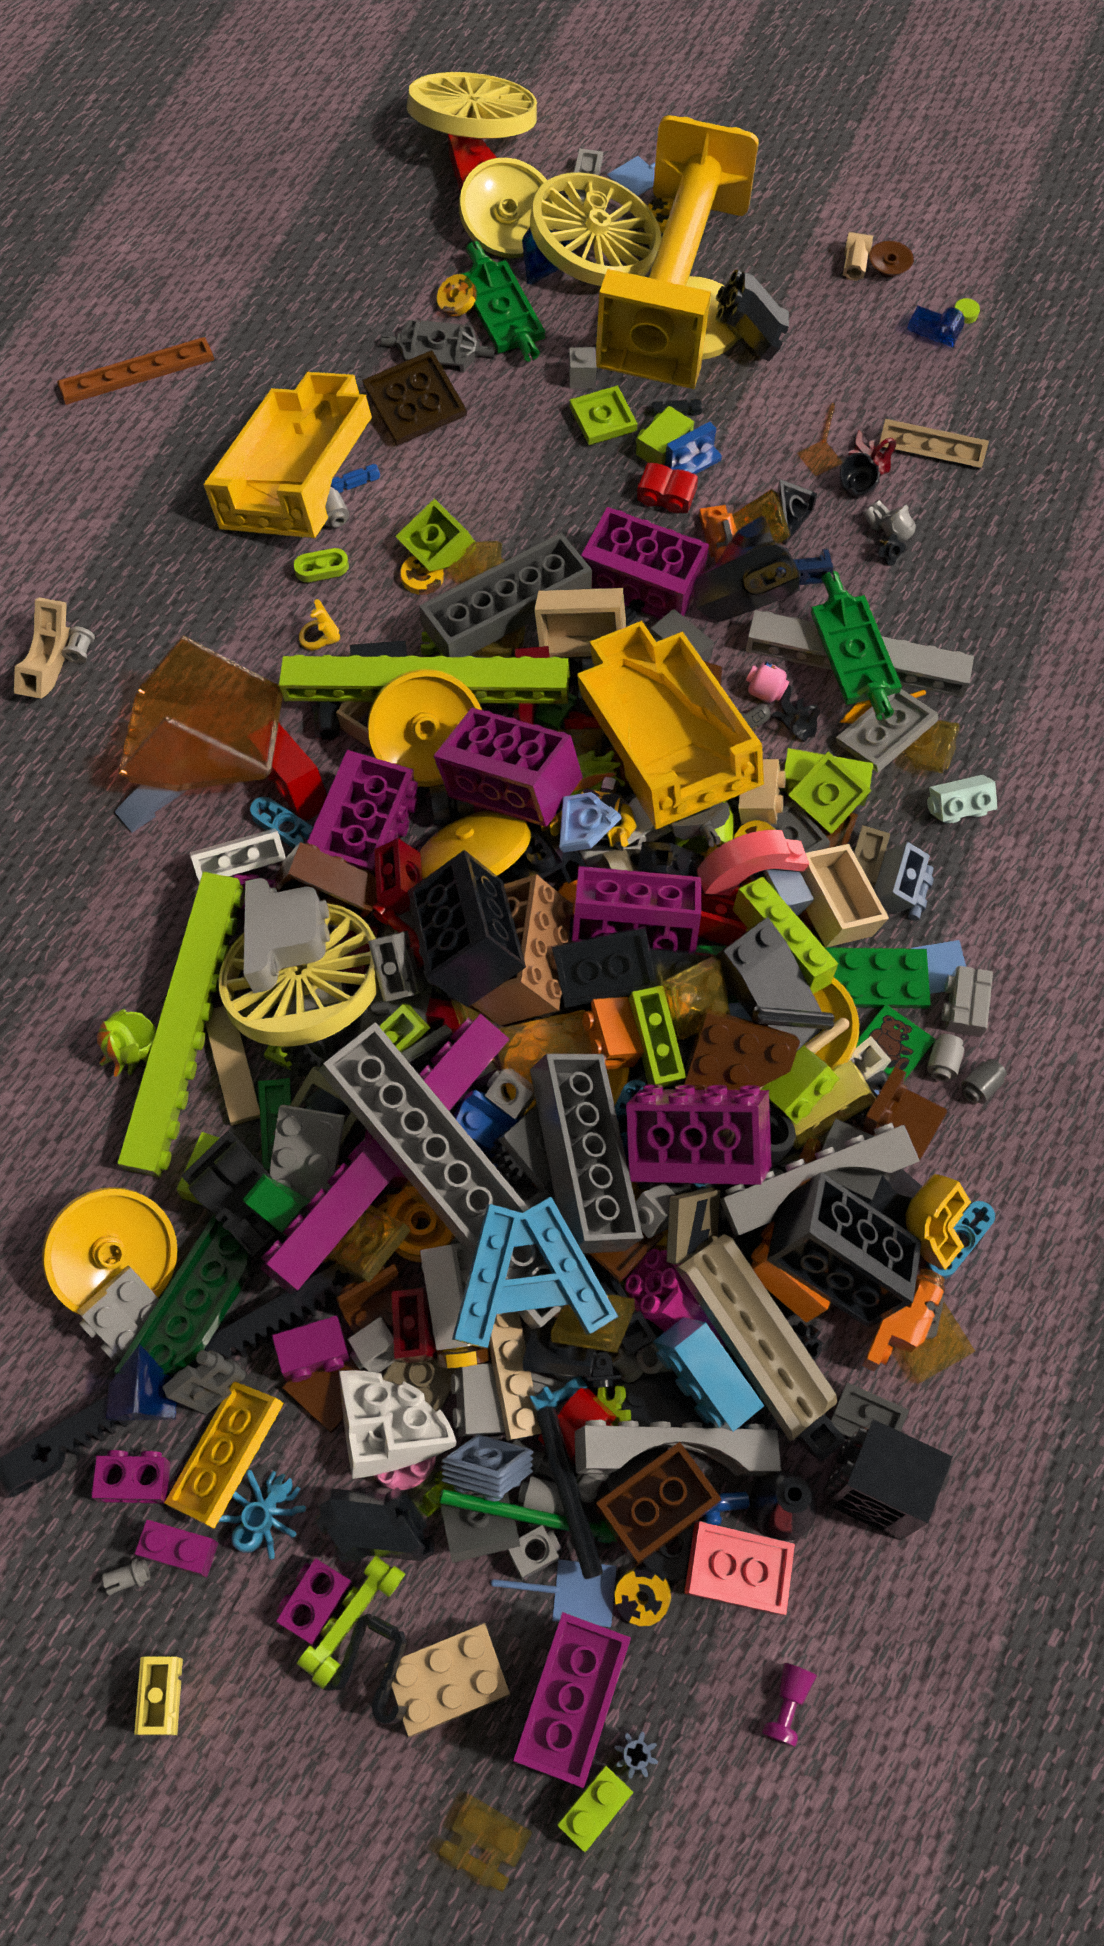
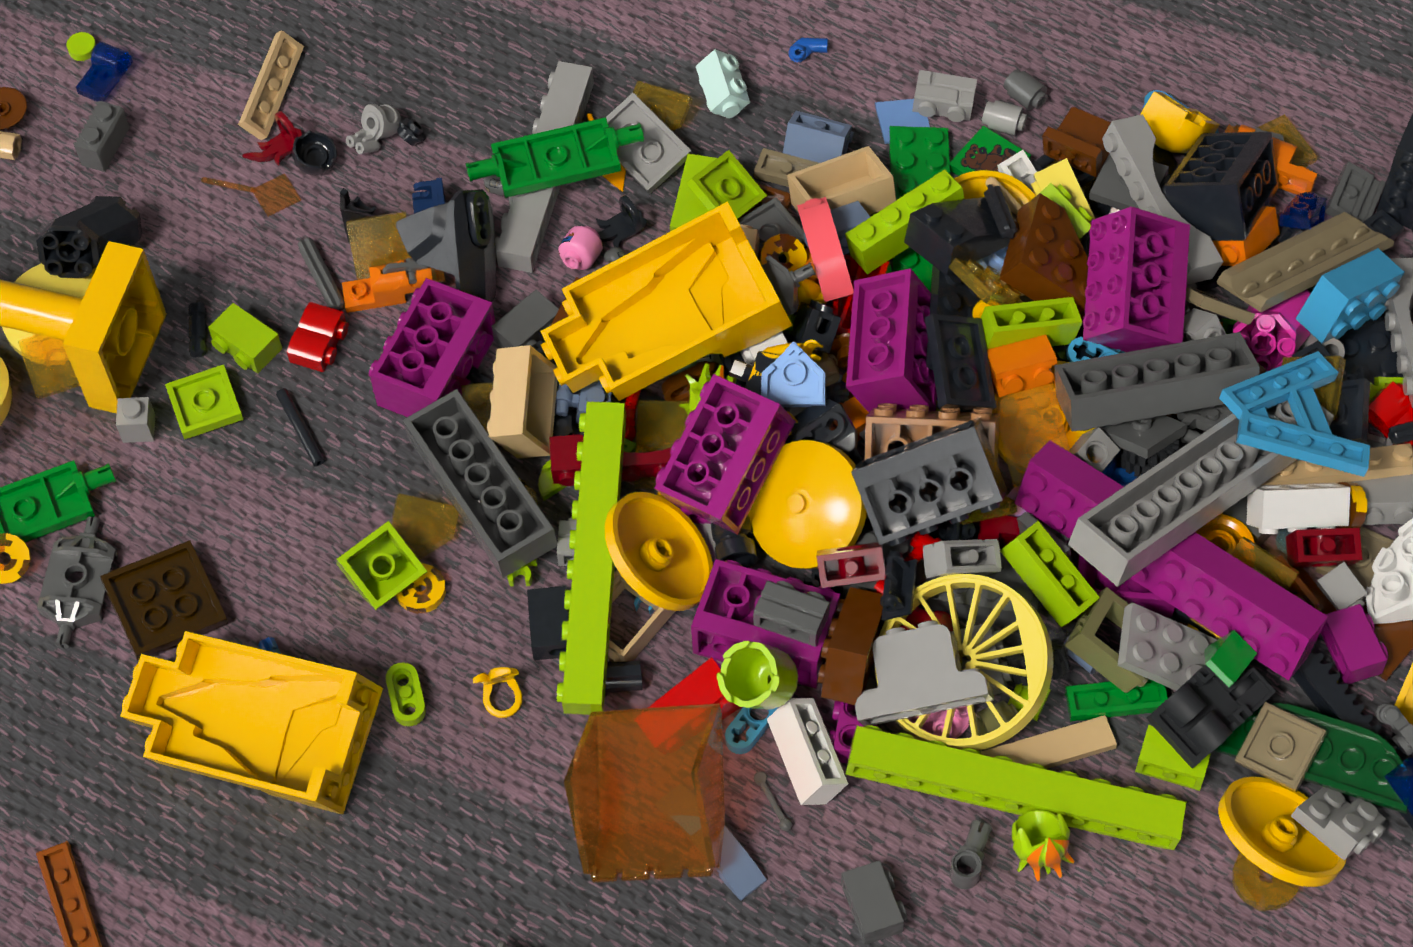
camera: 85 degrees left, 5 degrees down
(94, 908) = (872, 902): none -> dark grey brick
(129, 989) = (971, 855): none -> dark grey pin
(200, 1262) = (1280, 746): none -> dark tan tile
(225, 828) = (760, 779): none -> dark grey hinge
(286, 797) = (757, 676): none -> lime cylinder
(346, 821) = (791, 612): none -> dark grey brick
(383, 913) = (898, 586): none -> black hinge
(553, 1399) = (1379, 435): dark azure arm -> none
(581, 484) = (300, 427): none -> black piece
(693, 450) = (271, 308): blue bracket -> none
(735, 490) = (321, 274): none -> dark grey axle
(838, 1354) = (1304, 211): none -> clear blue plate
(866, 325) = (101, 136): none -> dark grey brick
(1022, 878) = (806, 46): none -> blue arm

